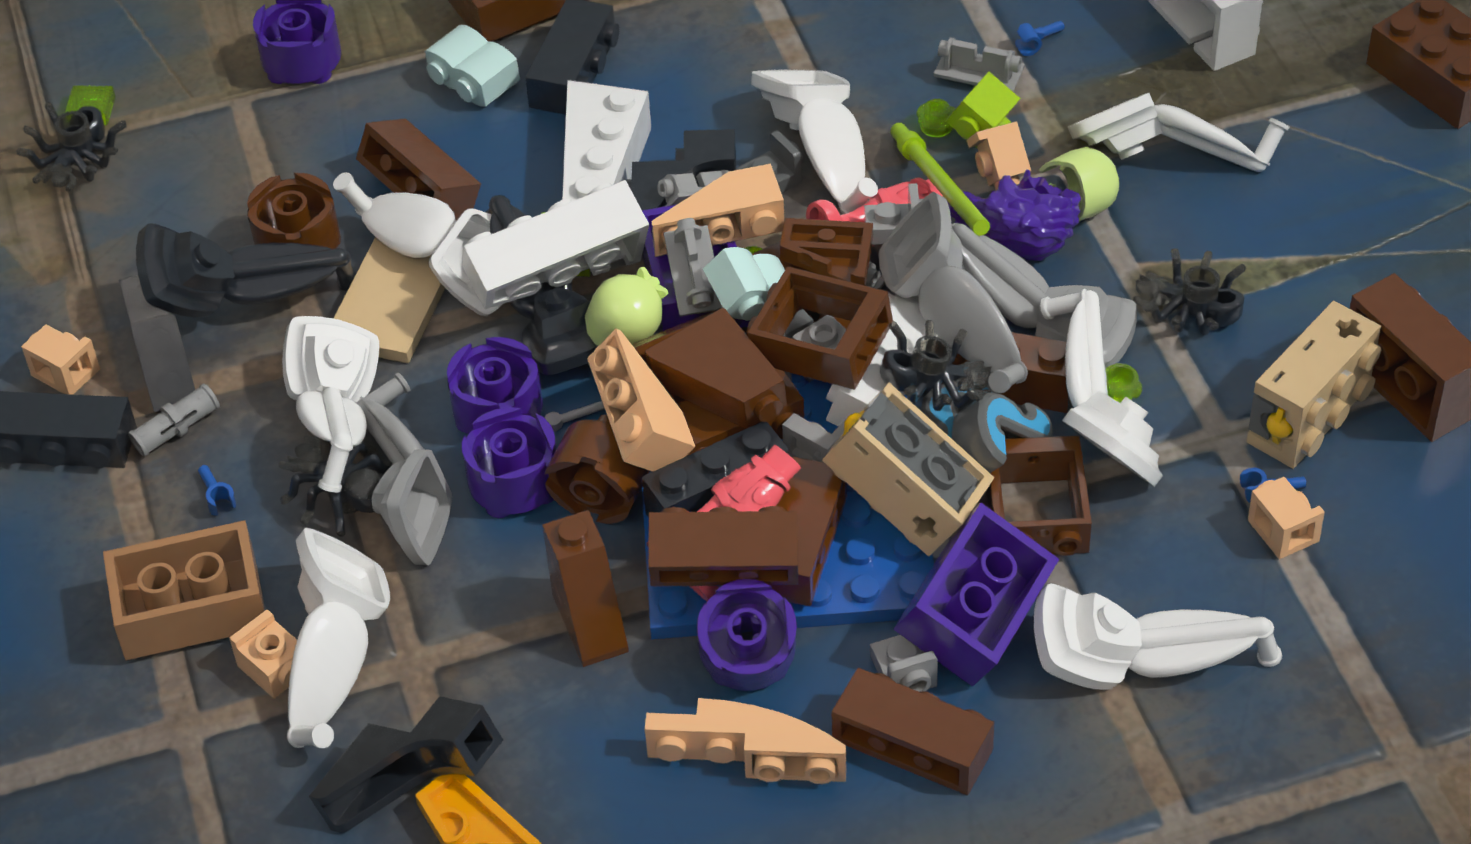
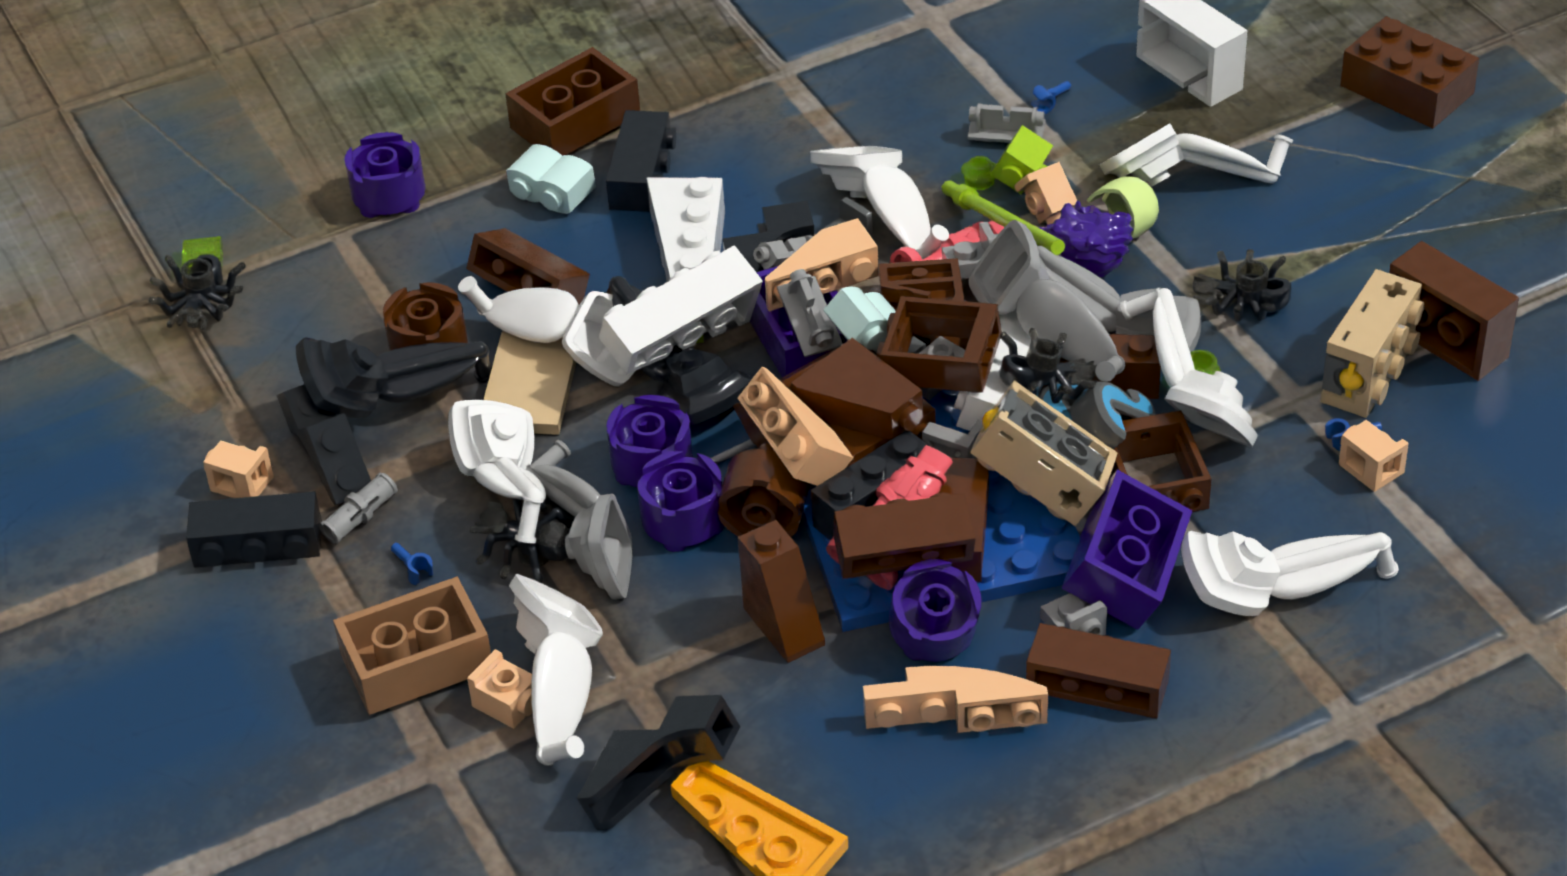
camera: 10 degrees left, 5 degrees down
(626, 304) = (752, 349): yellowish green helmet -> none

